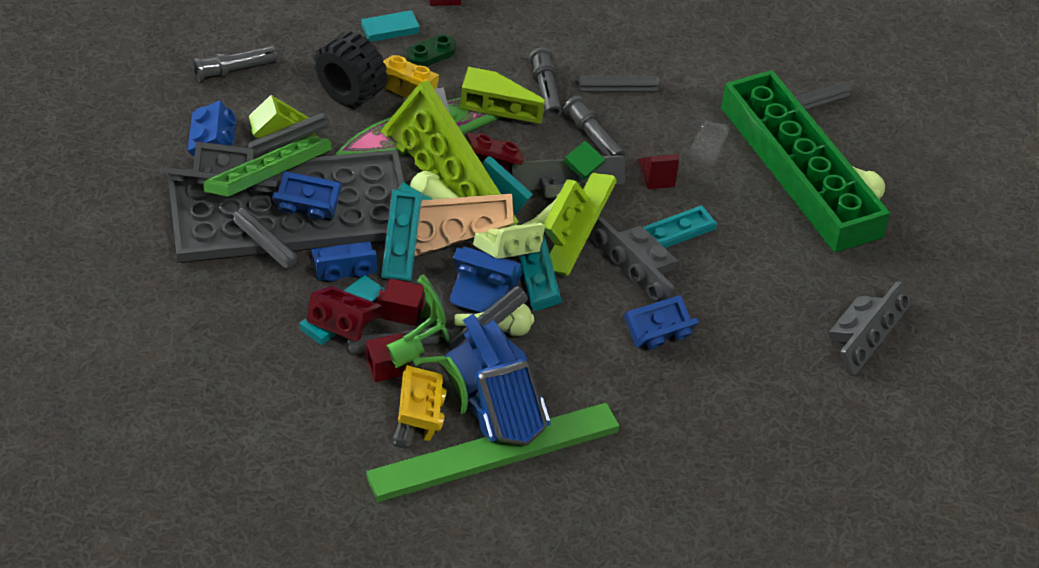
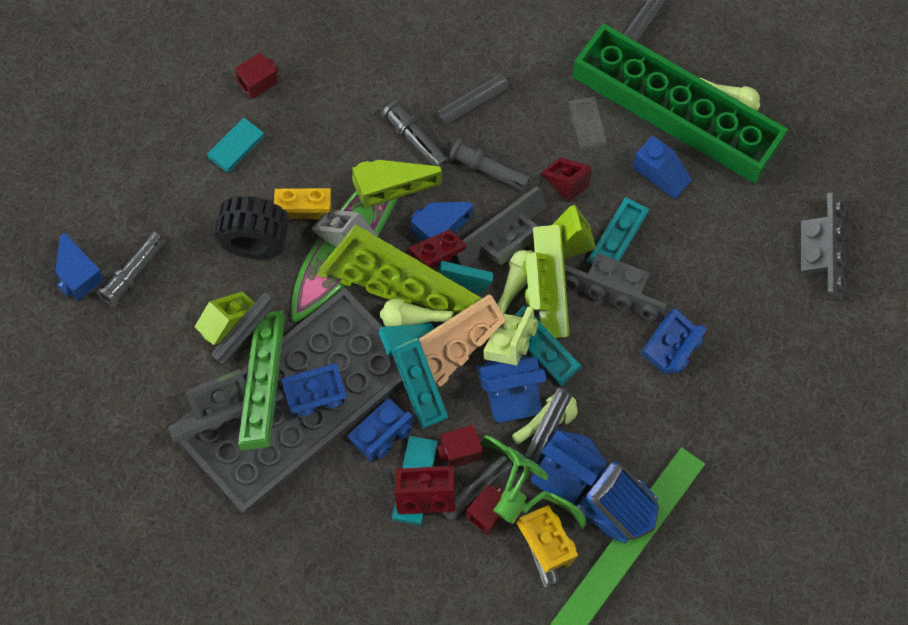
camera: 30 degrees left, 20 degrees up
(187, 40) = (75, 270): none -> blue slope
(212, 125) = (169, 358): blue bracket -> none
(265, 238) = (309, 453): dark grey axle -> none
(431, 50) = (291, 152): dark green plate -> none
(531, 143) = (440, 217): none -> blue slope
(584, 160) = (513, 213): green tile -> none
(629, 200) = (576, 233): none -> lime slope
(751, 197) = (662, 167): none -> blue slope

